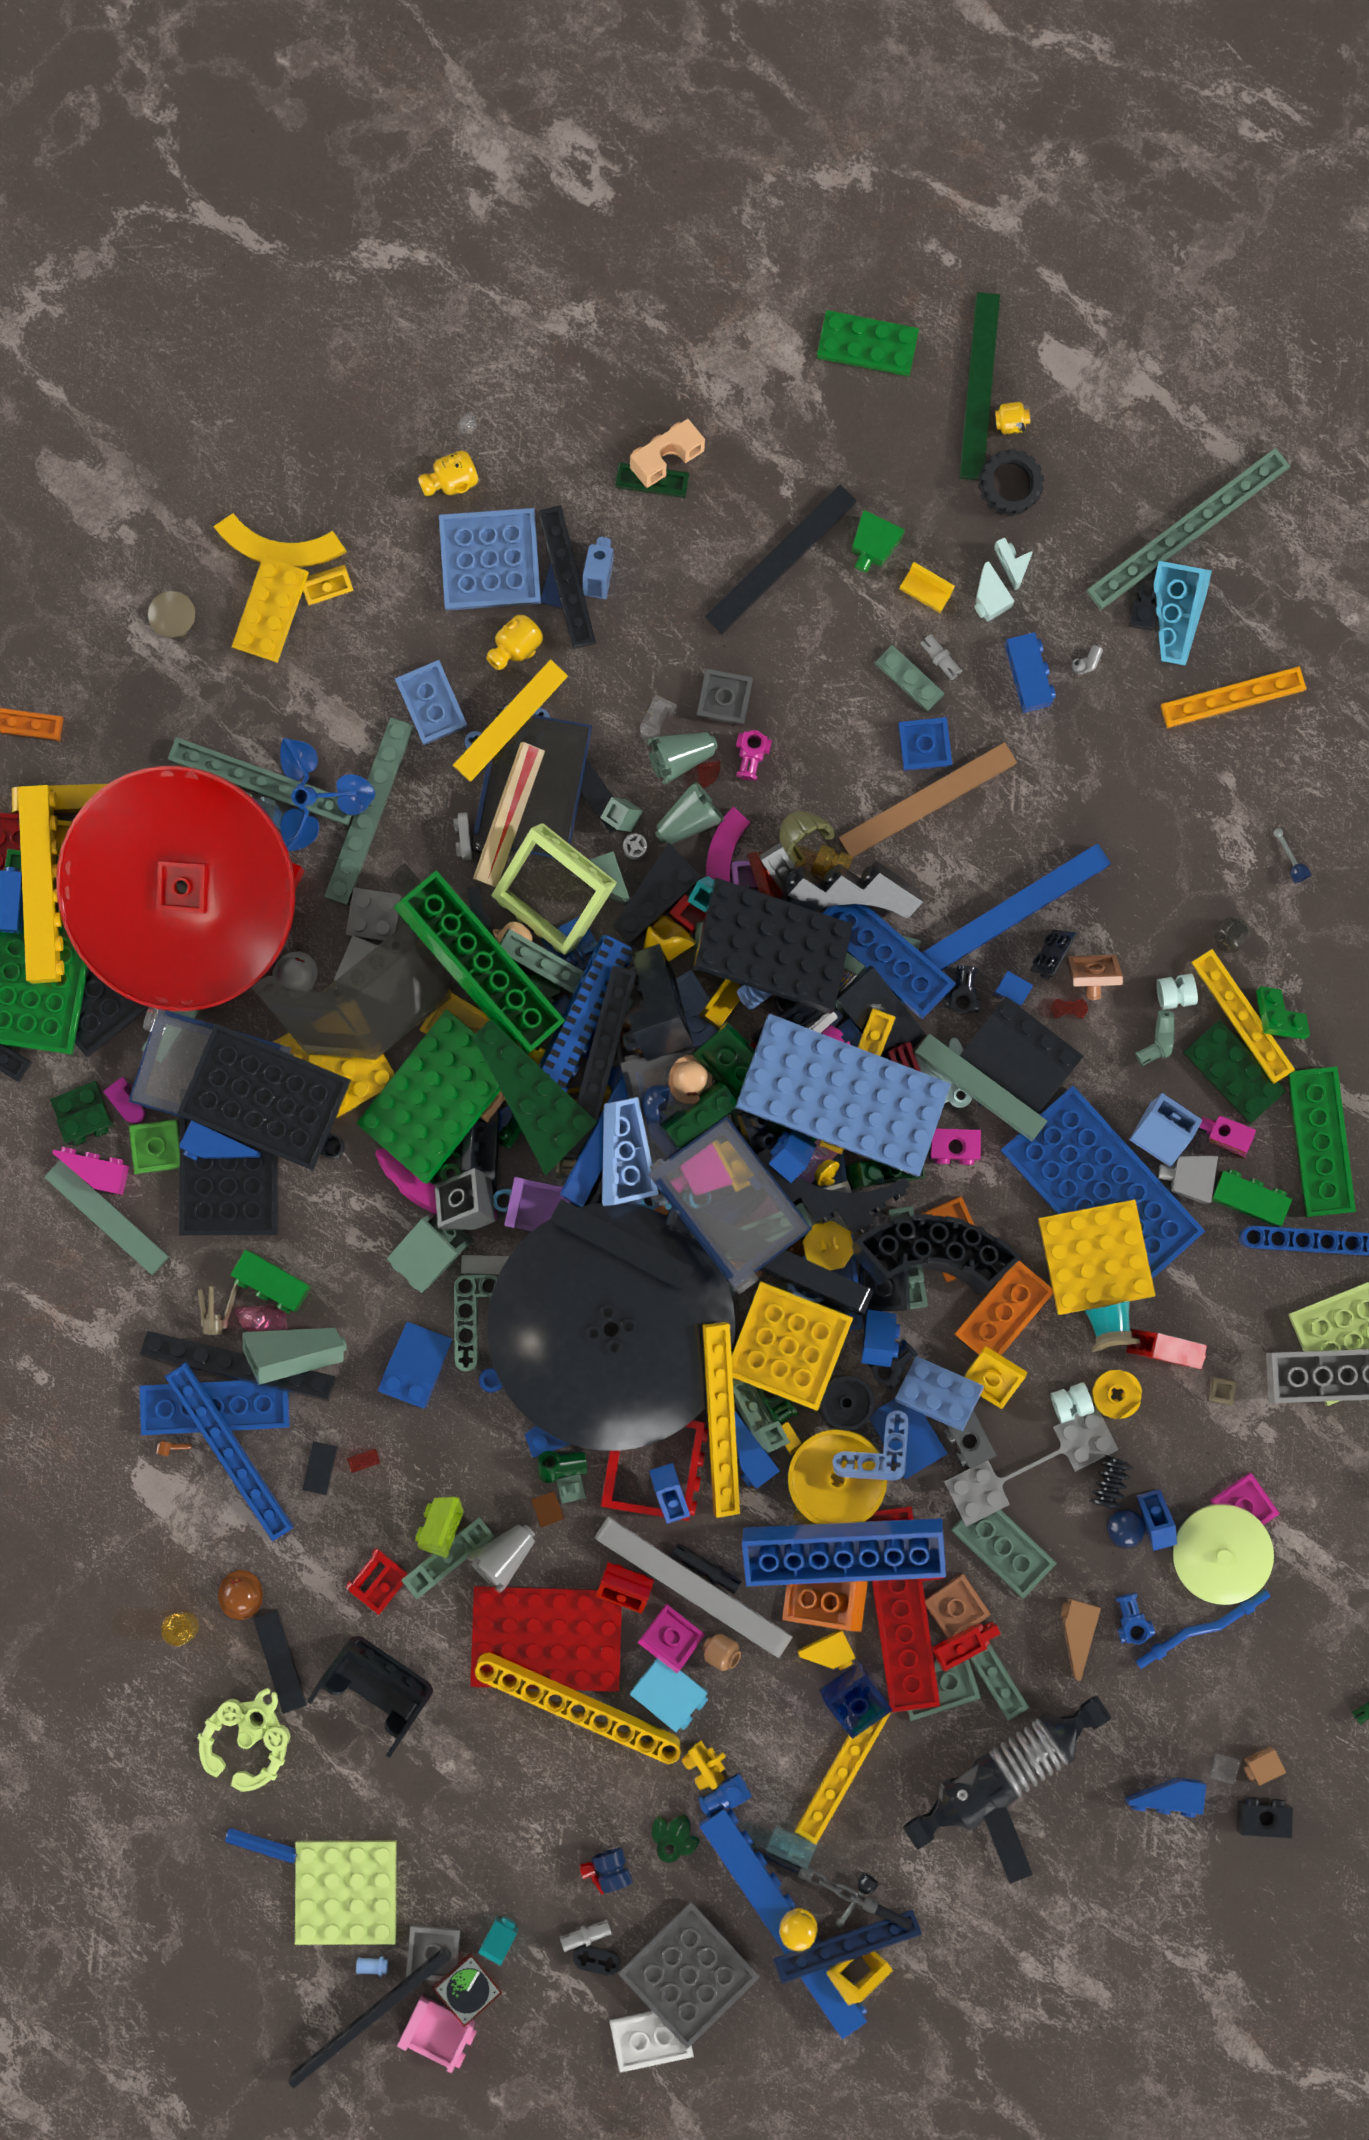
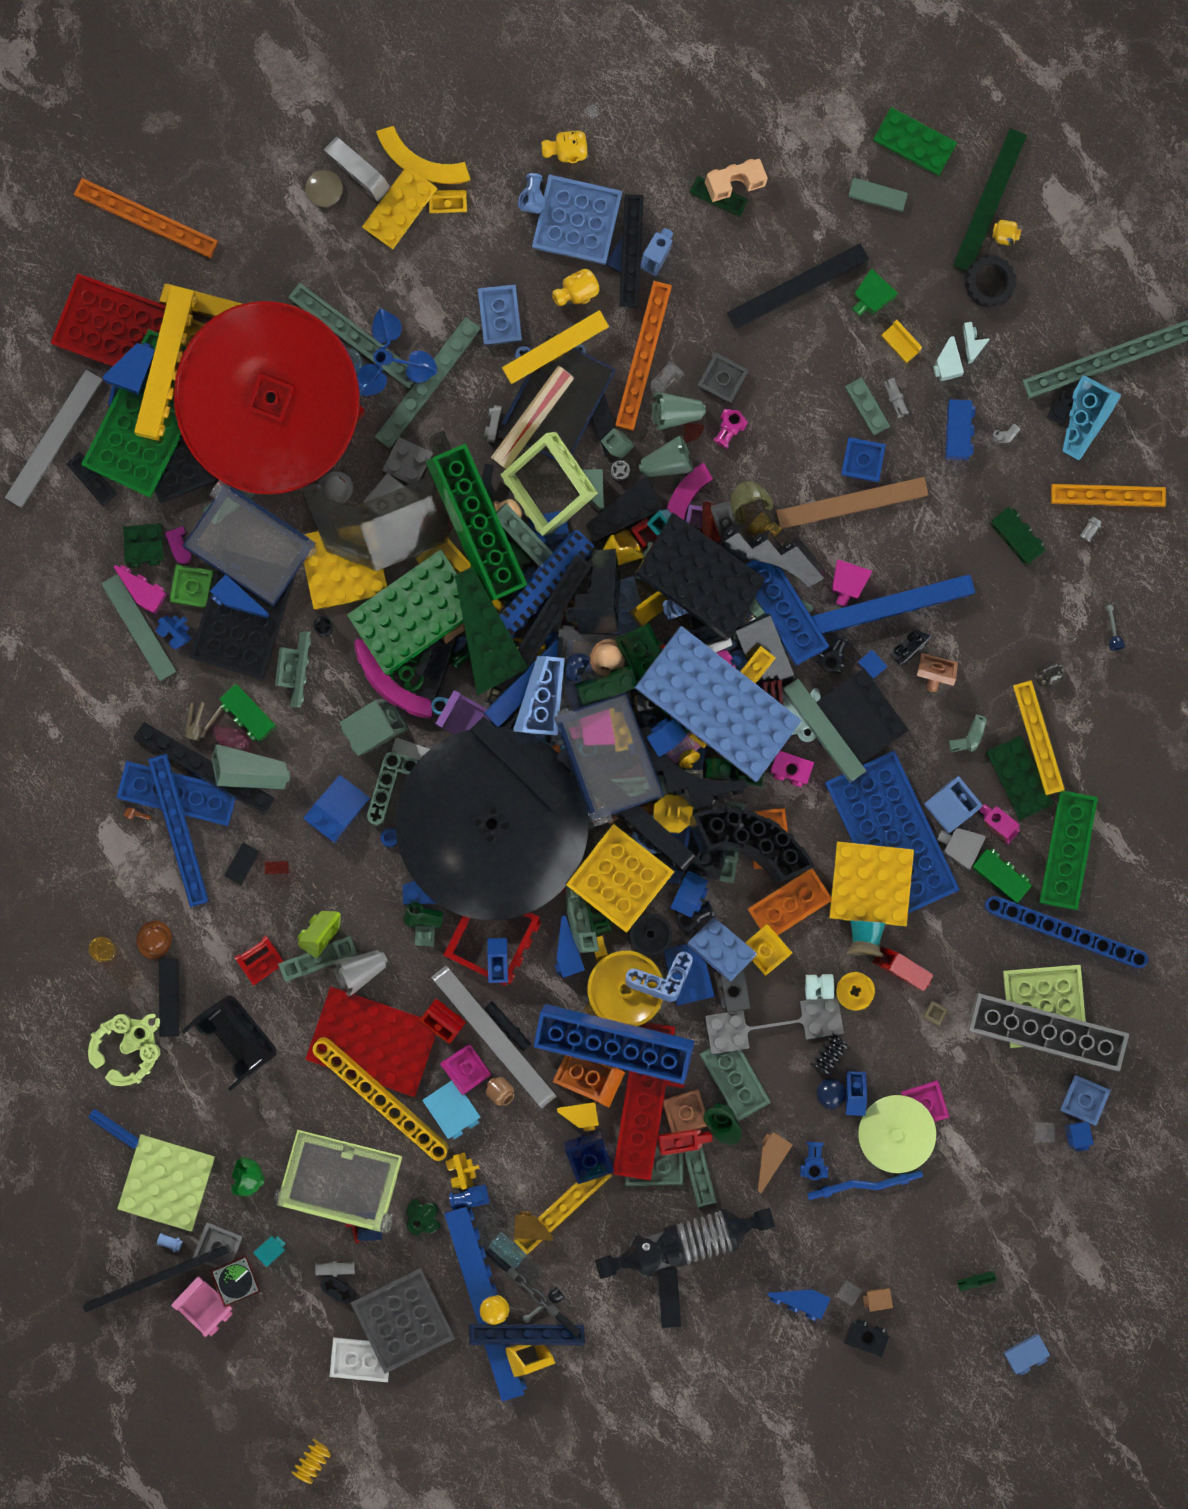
camera: 10 degrees right, 0 degrees up
(153, 1204) = (176, 628): none -> blue hips
(205, 577) = (357, 168): none -> light grey beam
(264, 1096) = (285, 573): black plate -> none
(309, 1211) = (292, 669): none -> sand green bracket
(426, 549) = (532, 198): none -> medium blue connector
(443, 1856) = (247, 1177): none -> green cylinder
(465, 1201) = (411, 697): dark grey slope -> none
(547, 1509) = (403, 945): reddish brown panel -> none
(559, 1827) = (339, 1181): none -> clear door
(620, 699) = (643, 356): none -> orange plate
(721, 1419) = (553, 917): yellow plate -> none
(810, 1811) = (530, 1227): none -> pearl gold slope
(843, 420) = (878, 194): none -> sand green tile
(953, 897) = (848, 581): none -> dark pink torso
(1006, 1608) = (723, 1124): none -> dark green piece
(1060, 1008) = (903, 690): clear red piece -> none
(1140, 779) = (1018, 536): none -> dark green brick
(1178, 991) = (994, 704): light aqua wheel -> none
(1225, 744) = (1090, 529): none -> light grey pin
(1276, 1019) = (1064, 749): green plate -> none

